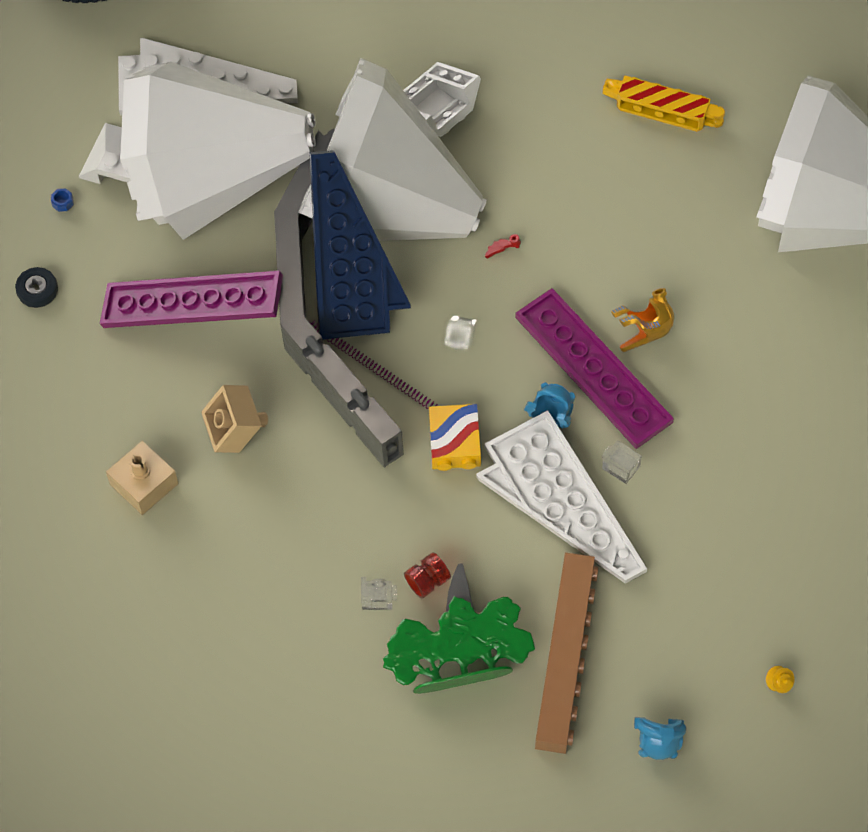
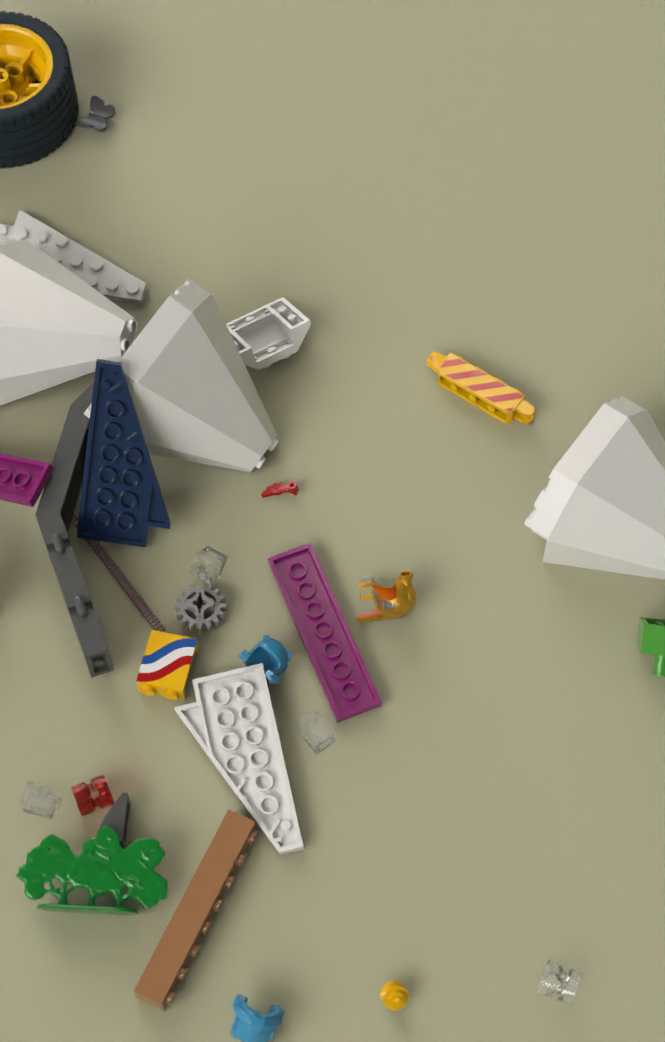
camera: 15 degrees right, 0 degrees up
(458, 381) = (211, 610): none -> light grey gear

